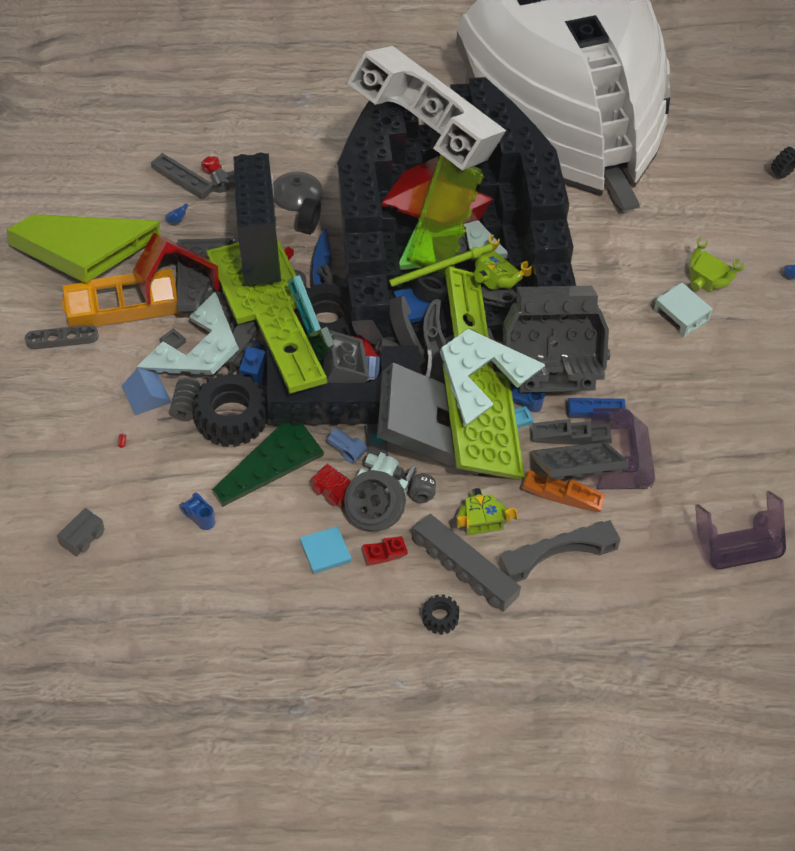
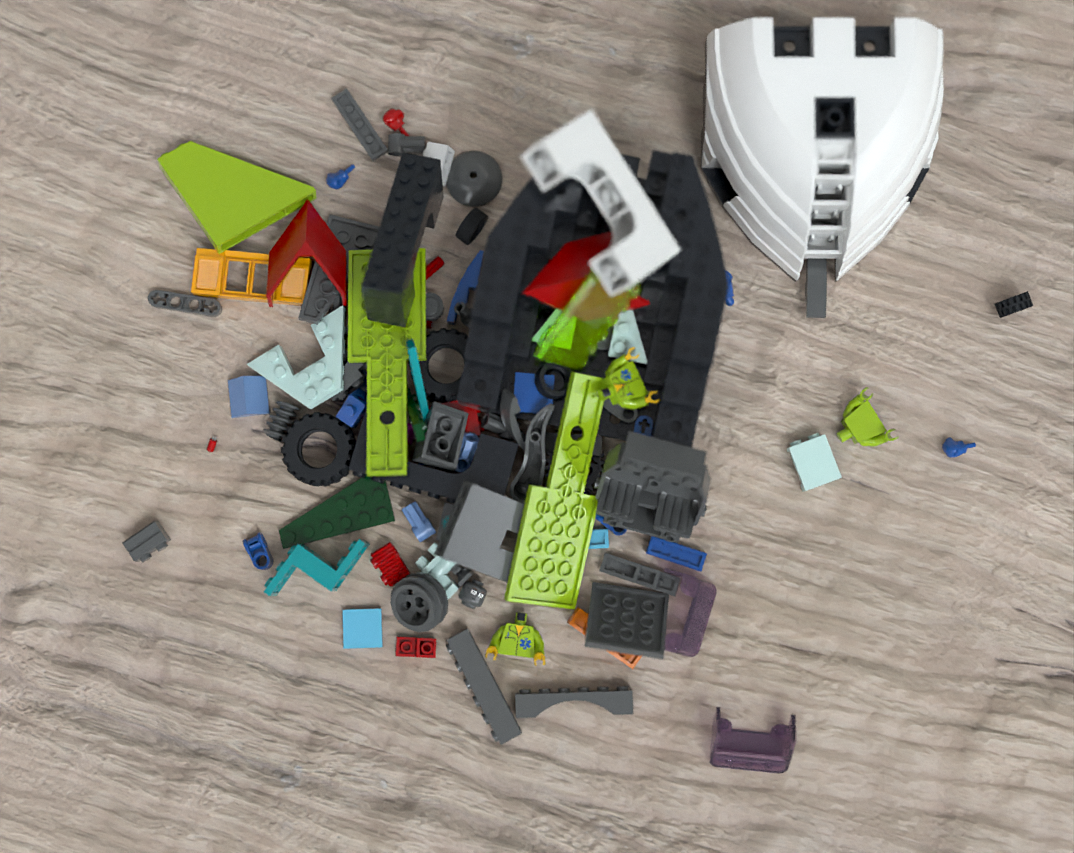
camera: 30 degrees right, 30 degrees up
(173, 339) = (291, 339): dark grey tile -> none
(261, 502) = (315, 567): none -> teal bracket
(440, 625) = (445, 743): black tyre -> none
(470, 353) = (554, 486): light aqua wing -> none
(472, 253) = (606, 364): lime bar -> none

